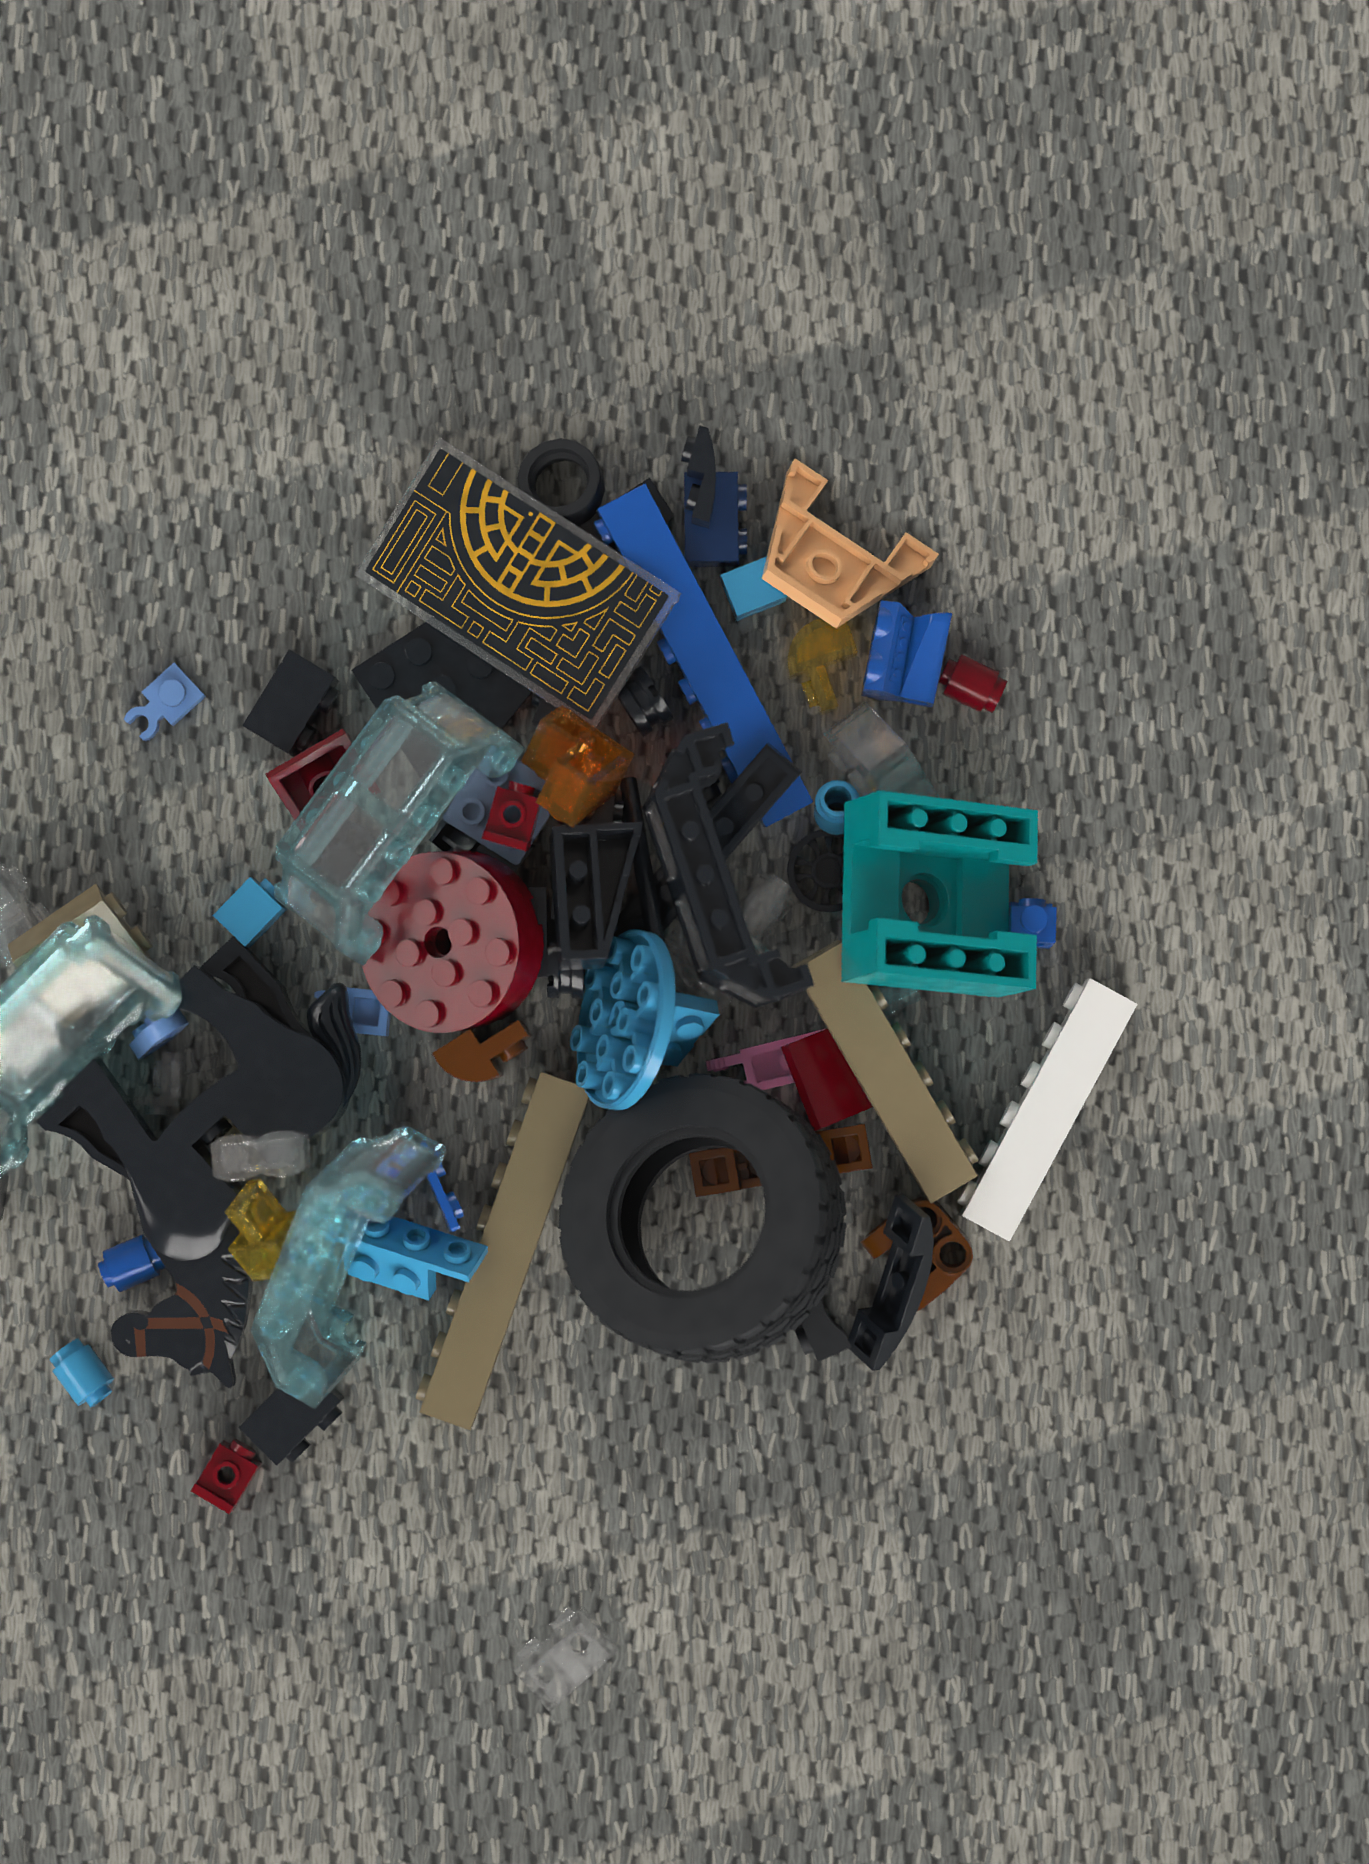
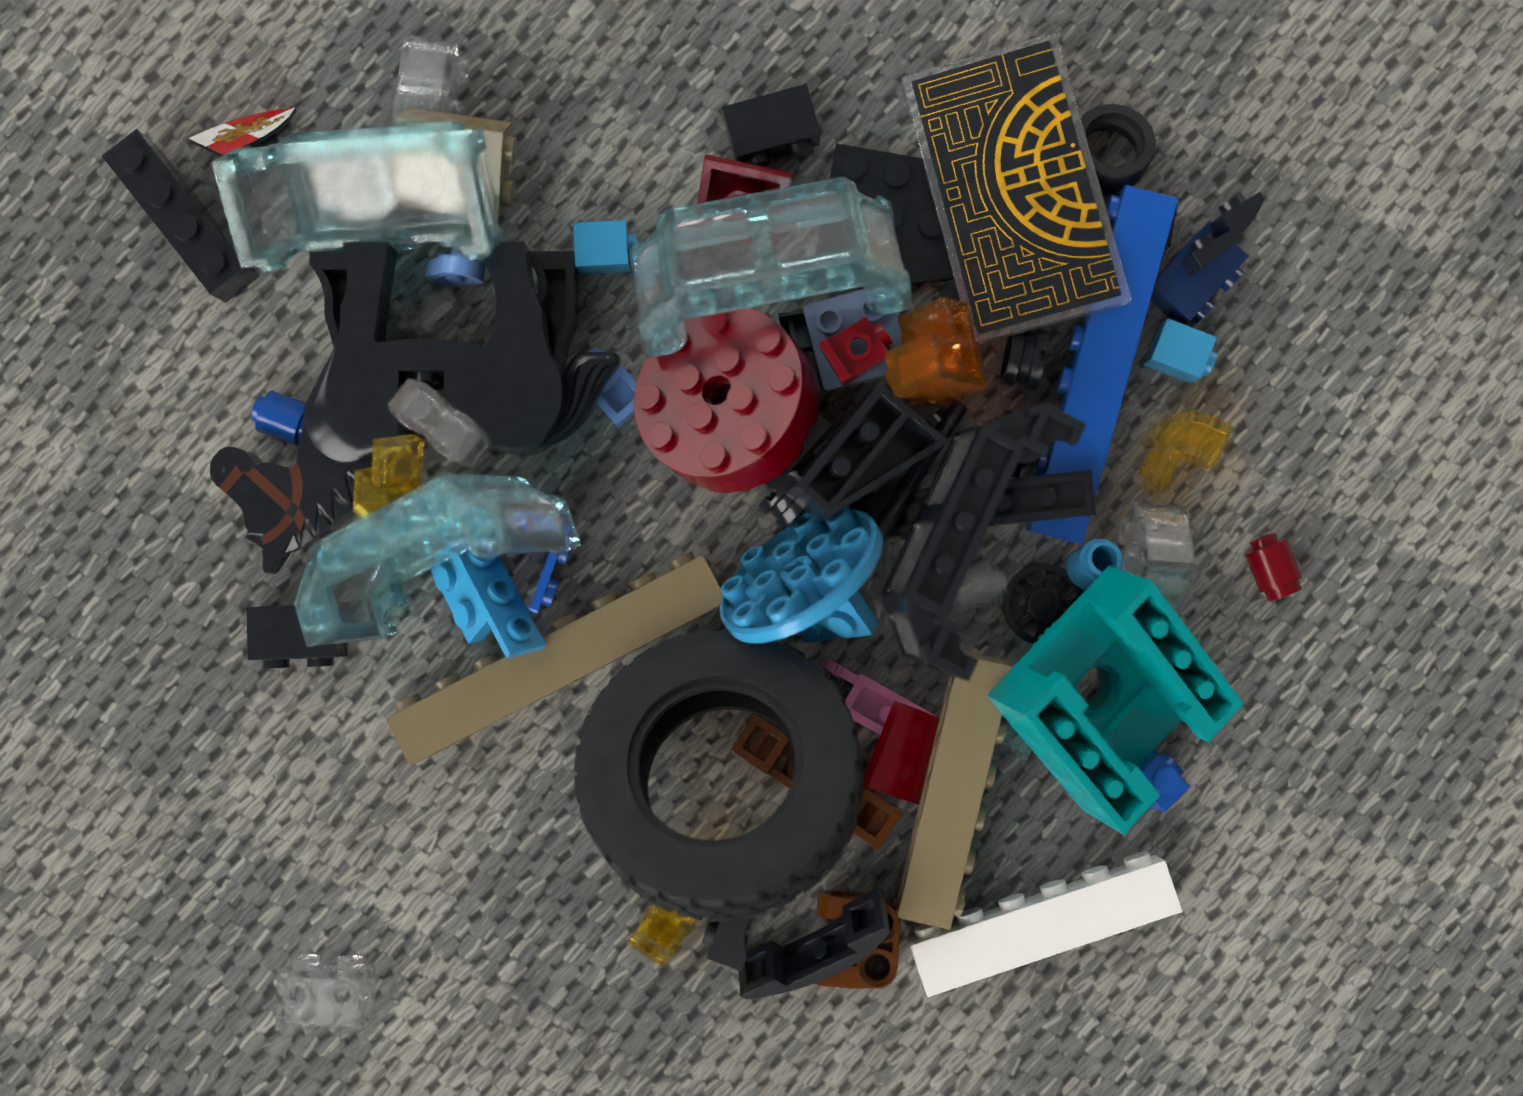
camera: 40 degrees right, 0 degrees up
(82, 1373) = (176, 463): dark azure brick -> none
(170, 698) = (689, 44): medium blue plate -> none
(227, 1494) = (191, 638): dark red brick -> none
(474, 1060) = (662, 501): reddish brown brick -> none
(770, 1378) = (659, 934): none -> clear yellow brick
(825, 567) = (1249, 384): light nougat wing -> none
(905, 655) = (1249, 500): blue piece -> none

